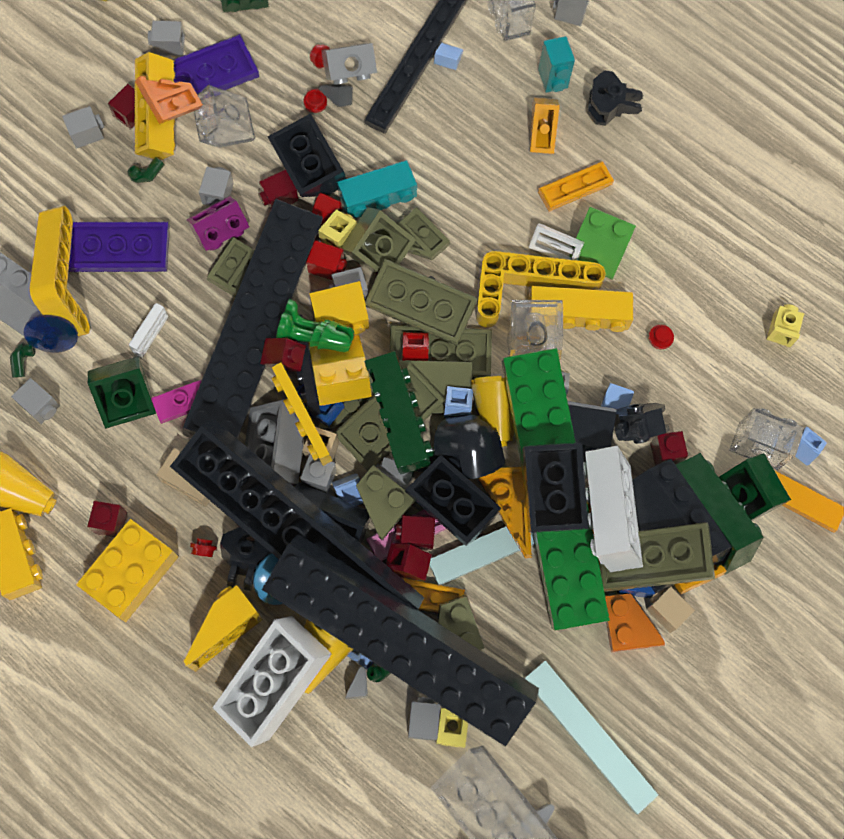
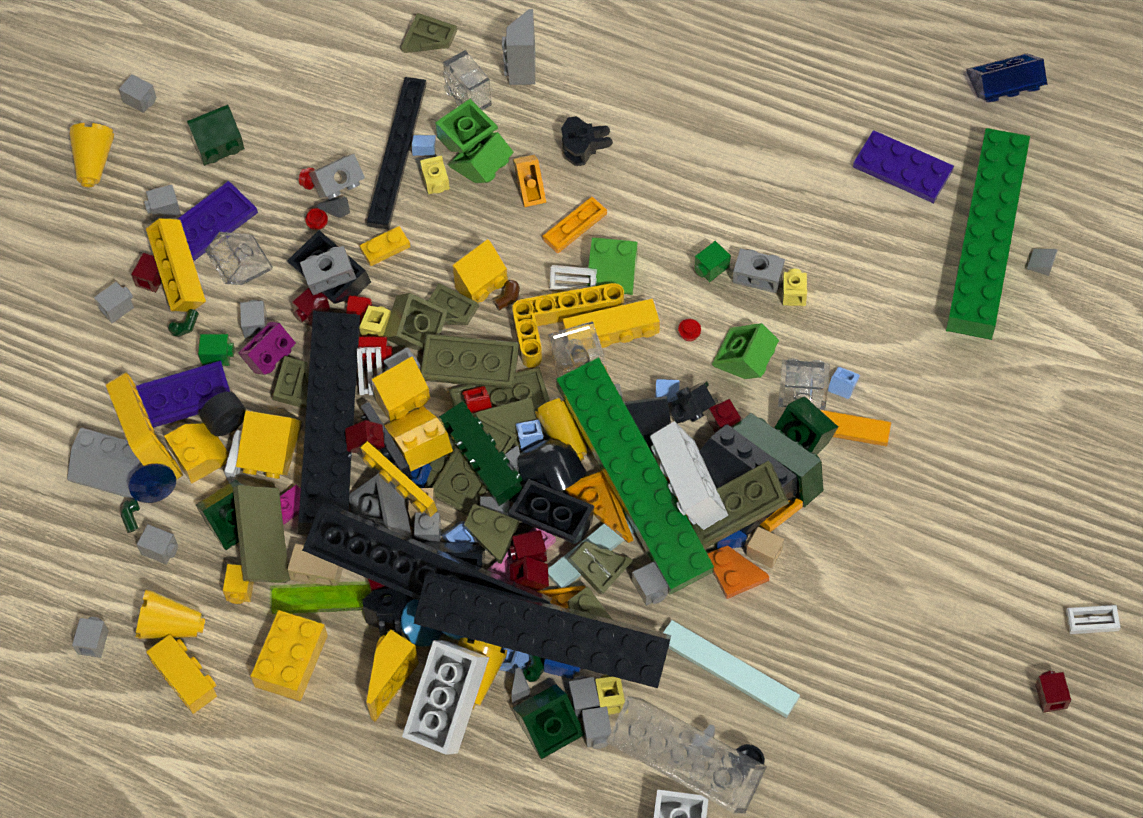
camera: 10 degrees left, 10 degrees down
(103, 472) = (234, 587): none -> yellow brick
(106, 518) = (256, 620): dark red brick -> none
(111, 310) = (196, 450): none -> yellow slope
(141, 426) = (261, 534): none -> olive tile
(149, 280) = (223, 413): none -> black tyre
(166, 208) = (215, 348): none -> green brick
(168, 99) = (189, 253): orange wing -> none
(180, 513) = (319, 599): none -> clear neon green tile
(184, 326) = (267, 444): none -> yellow slope
(203, 547) = (347, 619): red plate -> none
(305, 276) = (362, 390): none -> white tile
(314, 167) = (338, 274): none -> light grey brick
(324, 334) = (394, 411): green piece -> none
(375, 150) = (384, 246): none -> yellow plate
(377, 735) = (549, 721): none -> dark green slope
(378, 189) = (399, 277): teal brick -> none
(426, 762) = (596, 727): none -> light grey brick
(431, 424) = (513, 456): none -> light grey slope
(449, 90) = (434, 175): none -> light yellow brick
(461, 209) = (480, 272): none -> yellow slope
(485, 574) = (598, 565): none -> olive wing
(486, 241) = (510, 296): none -> reddish brown arm
(494, 49) = (464, 127): none -> bright green slope
(503, 86) = (483, 159): none -> bright green slope
(534, 612) = (650, 584): none -> light grey brick
(555, 487) = (632, 467): black brick -> none
(556, 64) = (523, 125): teal brick -> none
(707, 270) = (712, 261): none -> green brick
(714, 380) = (746, 351): none -> bright green slope
(757, 307) = (766, 279): none -> light grey brick

